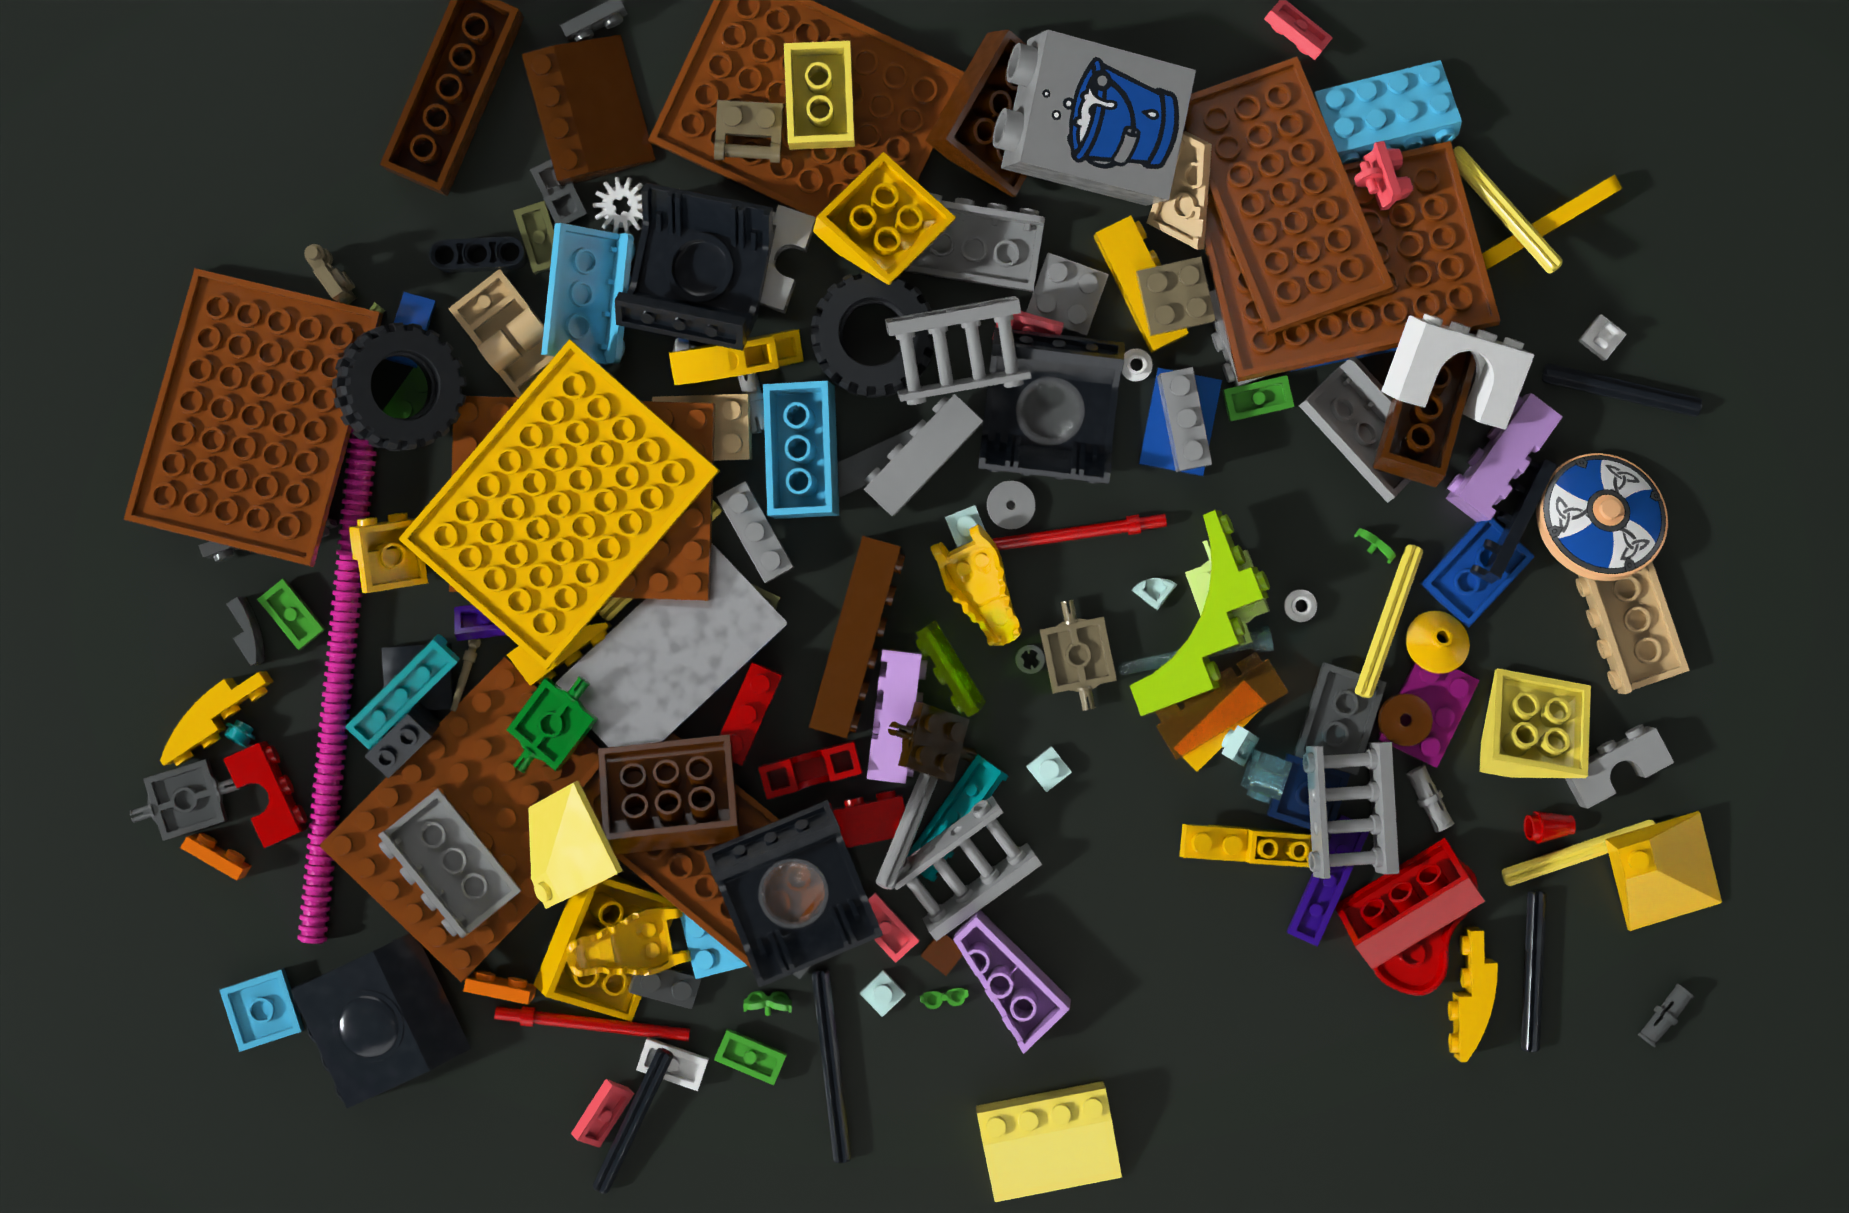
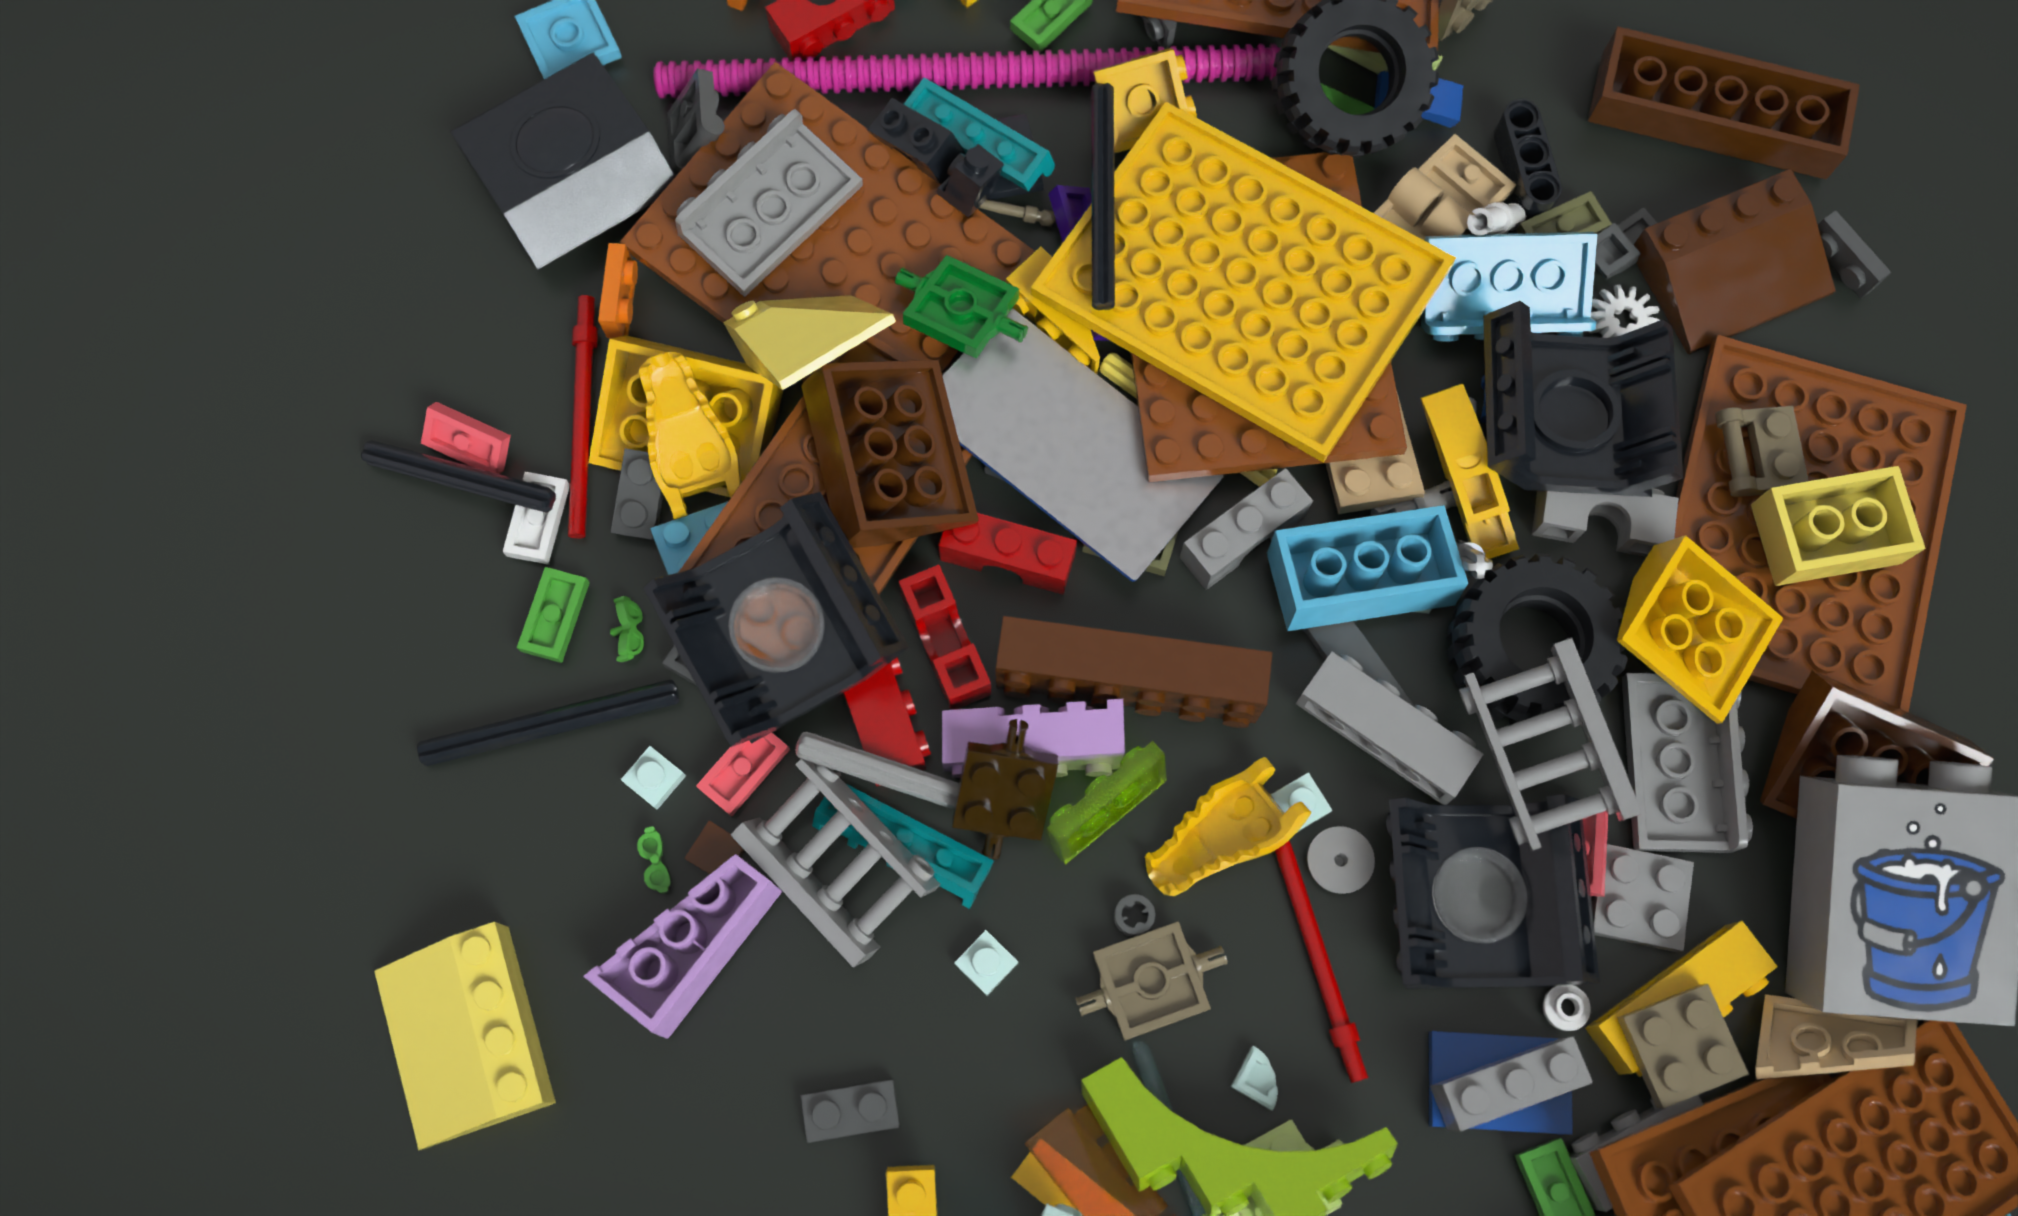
camera: 80 degrees right, 15 degrees down
(352, 916) = (693, 119): none -> dark grey plate
(445, 703) = (971, 180): none -> black brick
(477, 603) = (1103, 197): none -> black axle
(530, 293) = (1496, 218): none -> white pin
(804, 371) = (1473, 559): none -> light grey axle
(1137, 876) = (850, 1111): none -> dark grey plate

